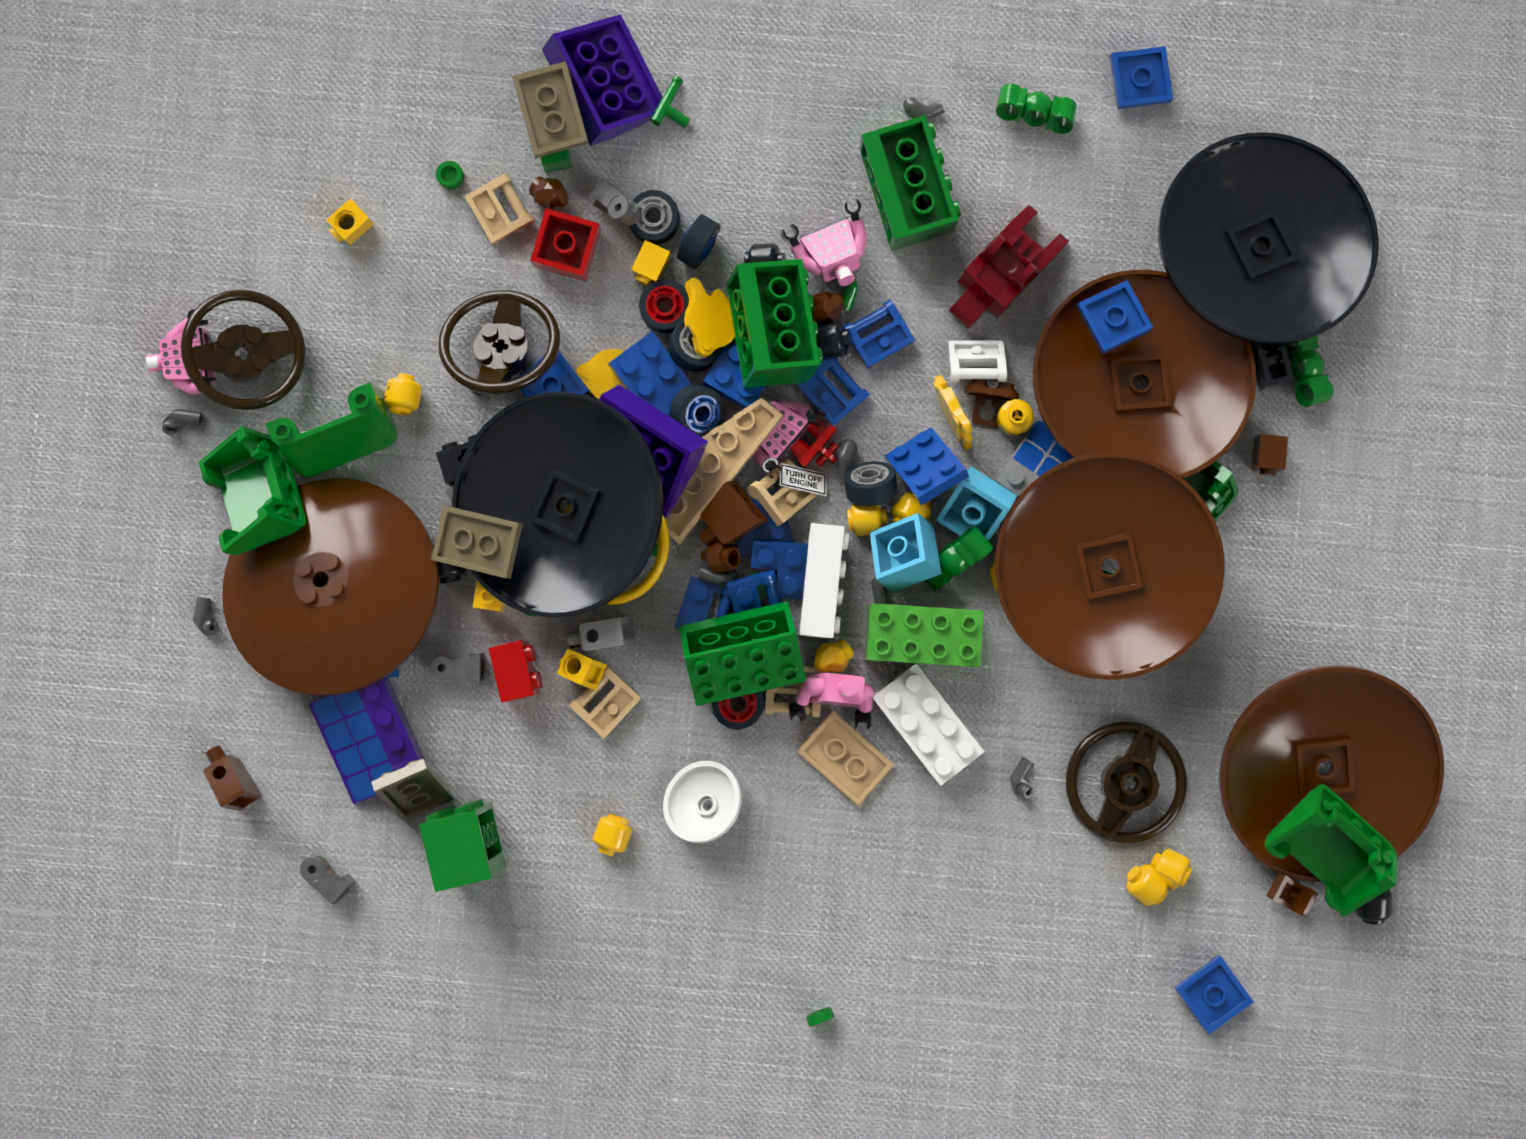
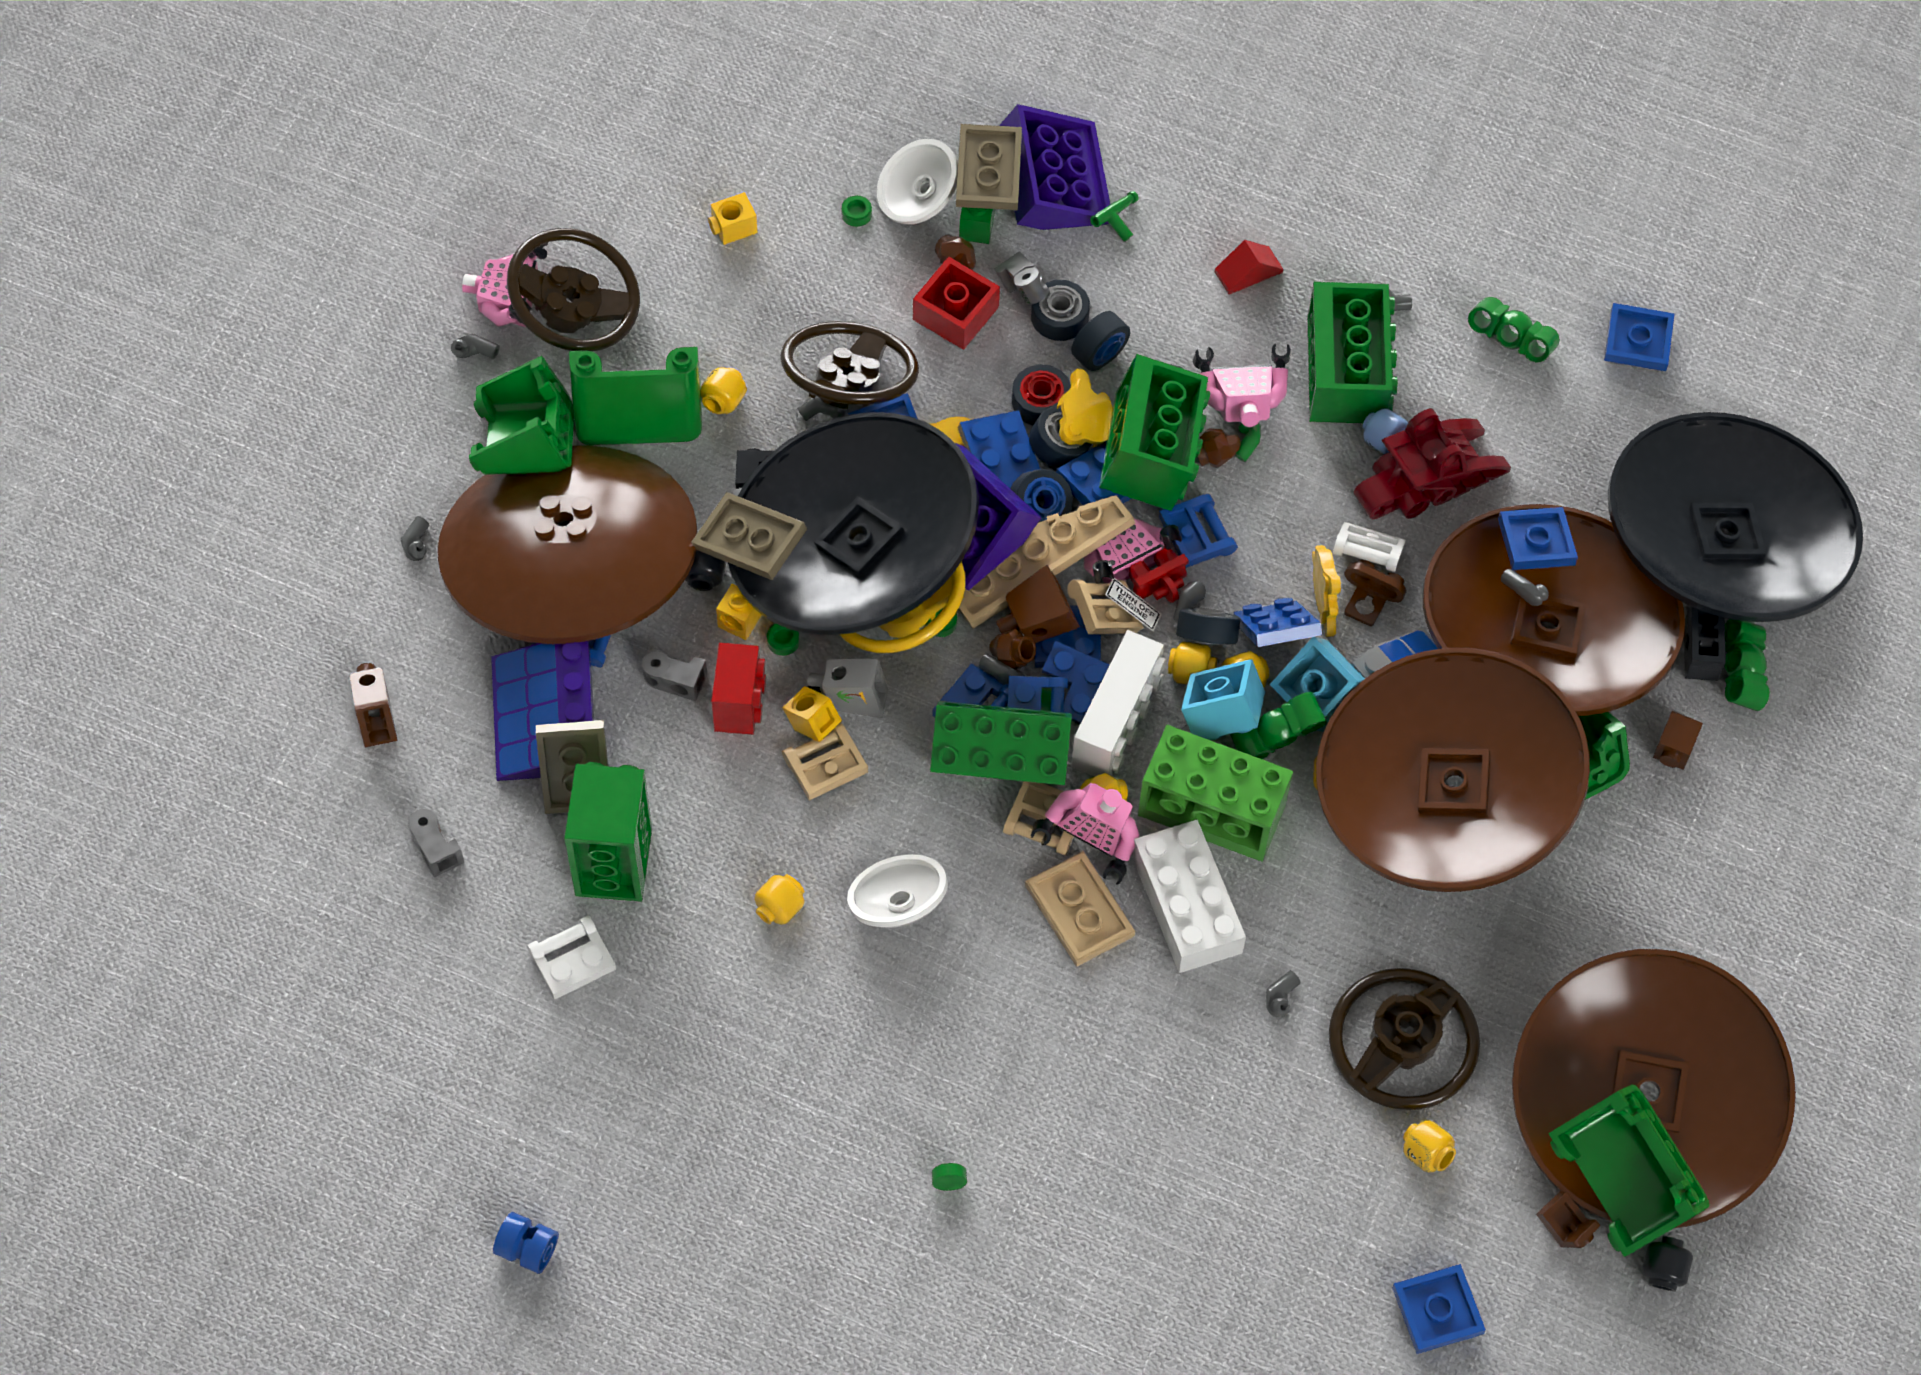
camera: 15 degrees right, 25 degrees down
(476, 941) = (576, 966): none -> white plate
(482, 131) = (917, 181): none -> white dish
(492, 215) = (887, 255): tan plate -> none
(650, 263) = (1041, 347): yellow brick -> none
(739, 719) = (976, 823): wheel -> none
(796, 119) = (1247, 266): none -> red slope
(833, 340) = (1214, 478): black head -> none
(883, 341) = (1272, 499): blue plate -> none
(959, 246) = (1381, 425): none -> light blue head
(1008, 424) = (1394, 614): yellow head -> none
(1117, 372) = (1525, 589): none -> dark grey arm
(1146, 885) = (1393, 1154): yellow head -> none

